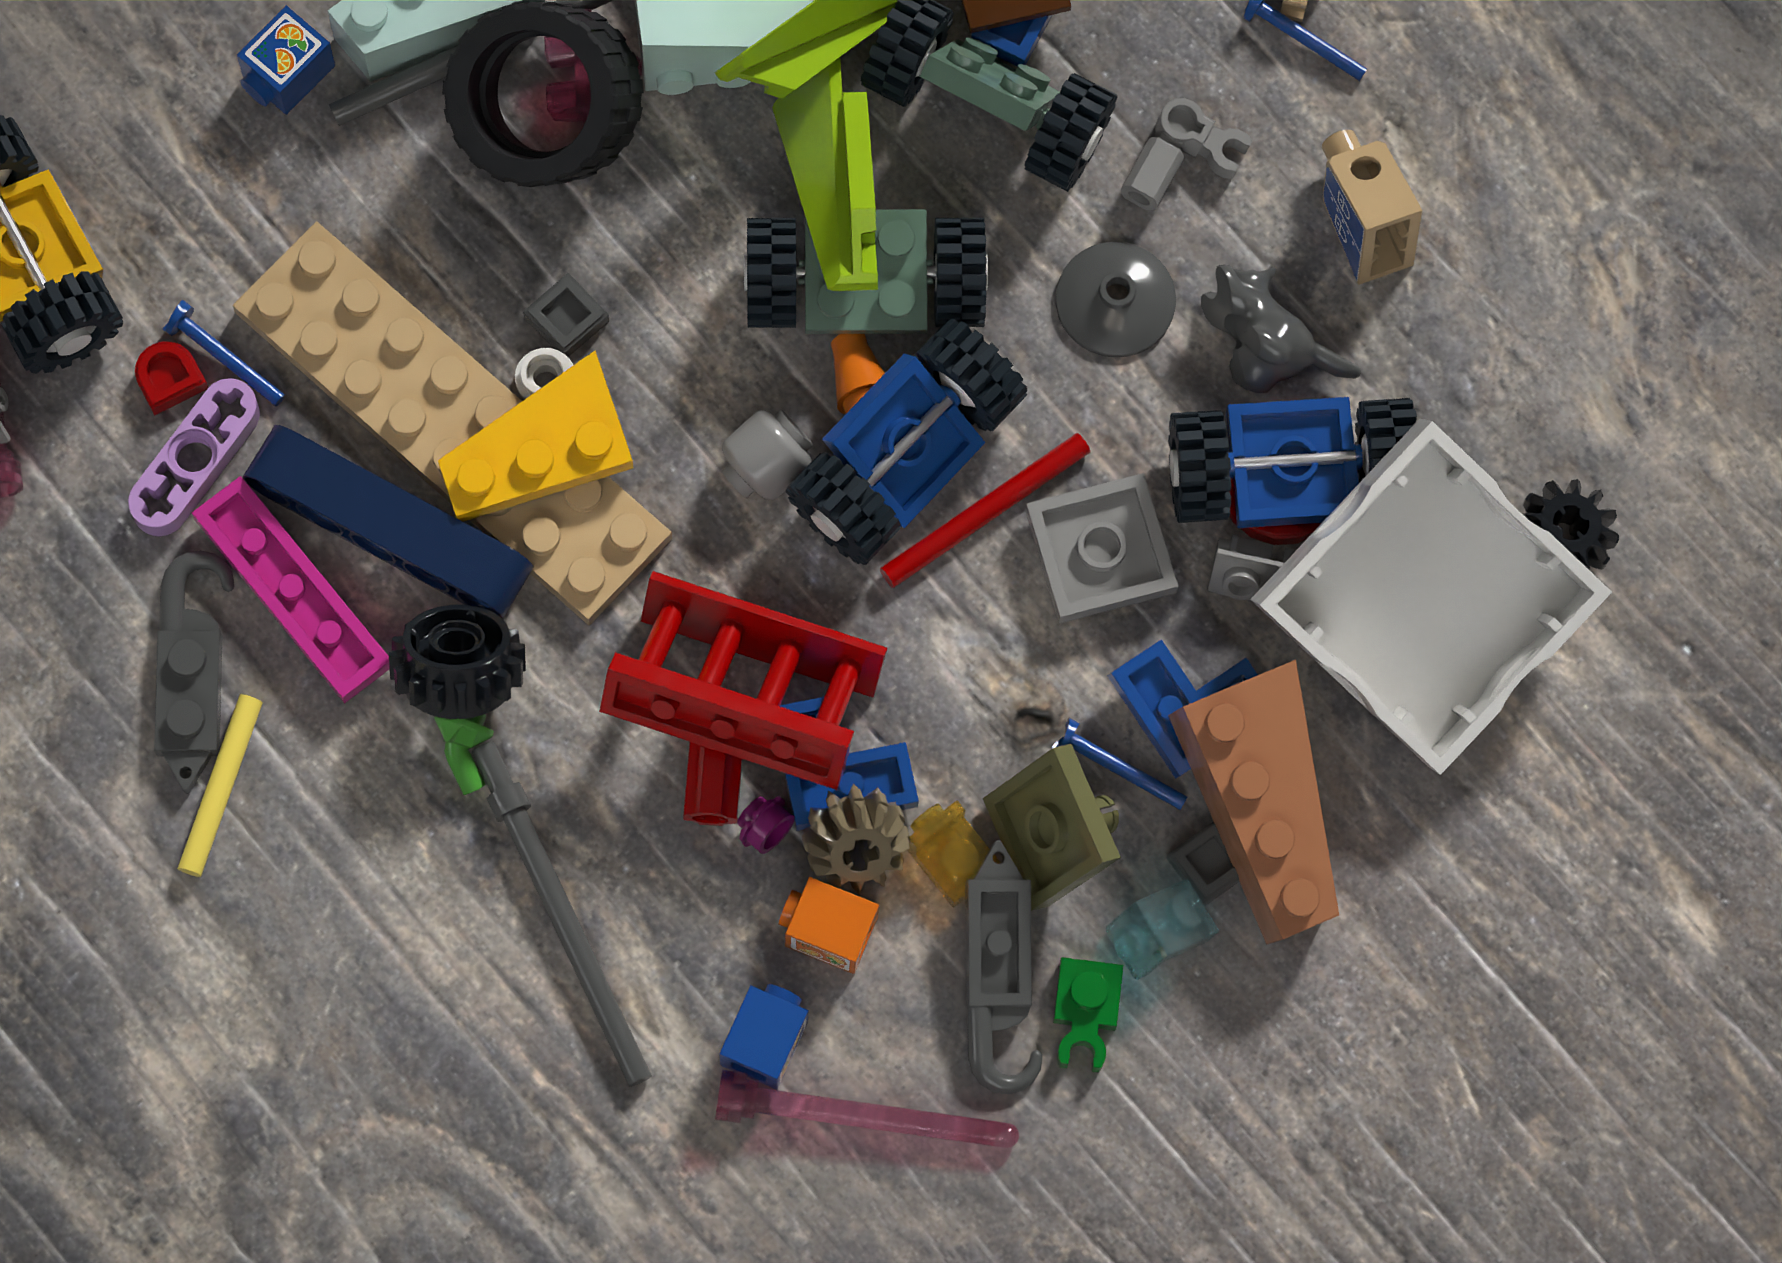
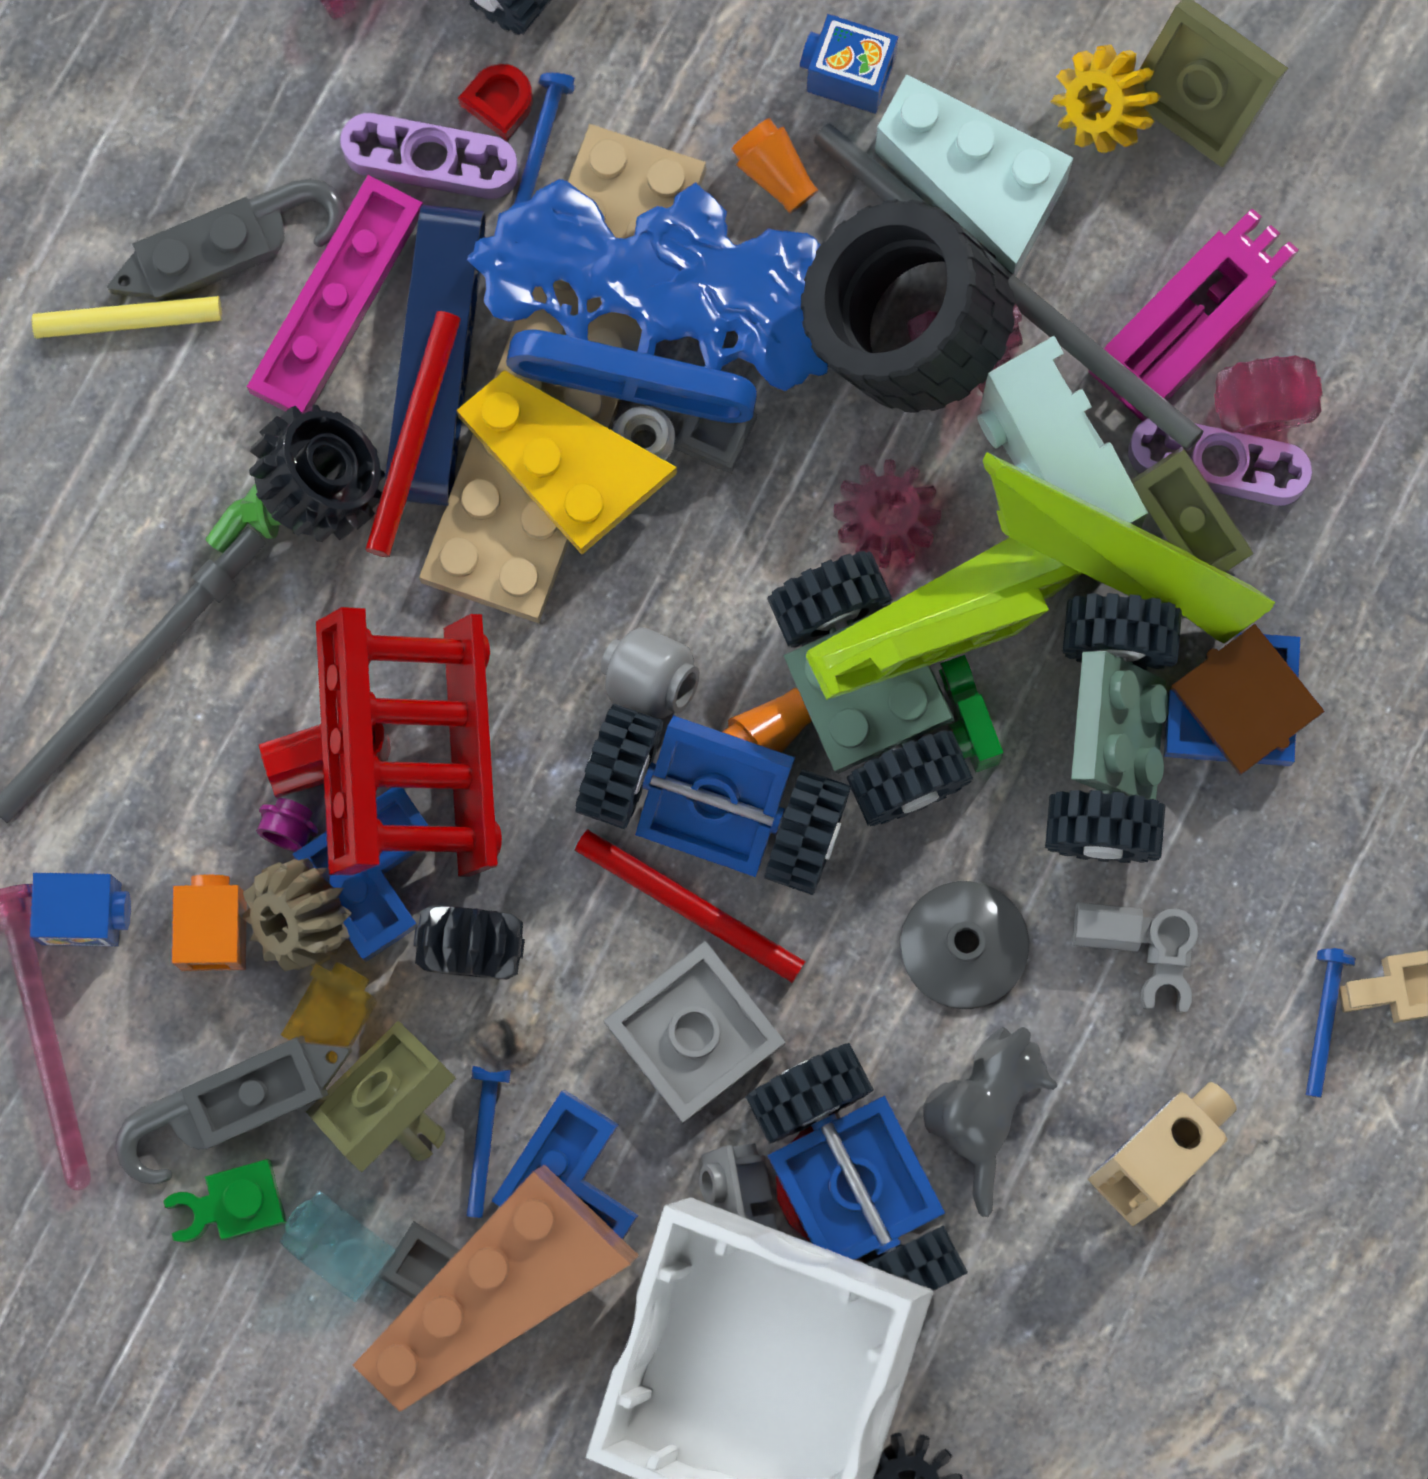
camera: 75 degrees right, 5 degrees up
(347, 163) = (774, 164): none -> orange cone
(426, 283) = (672, 278): none -> blue plant
(462, 560) = (412, 434): none -> red bar
(688, 206) = (912, 518): none -> clear pink gear
(938, 199) = (973, 724): none -> green plate
(945, 699) = (469, 942): none -> black gear

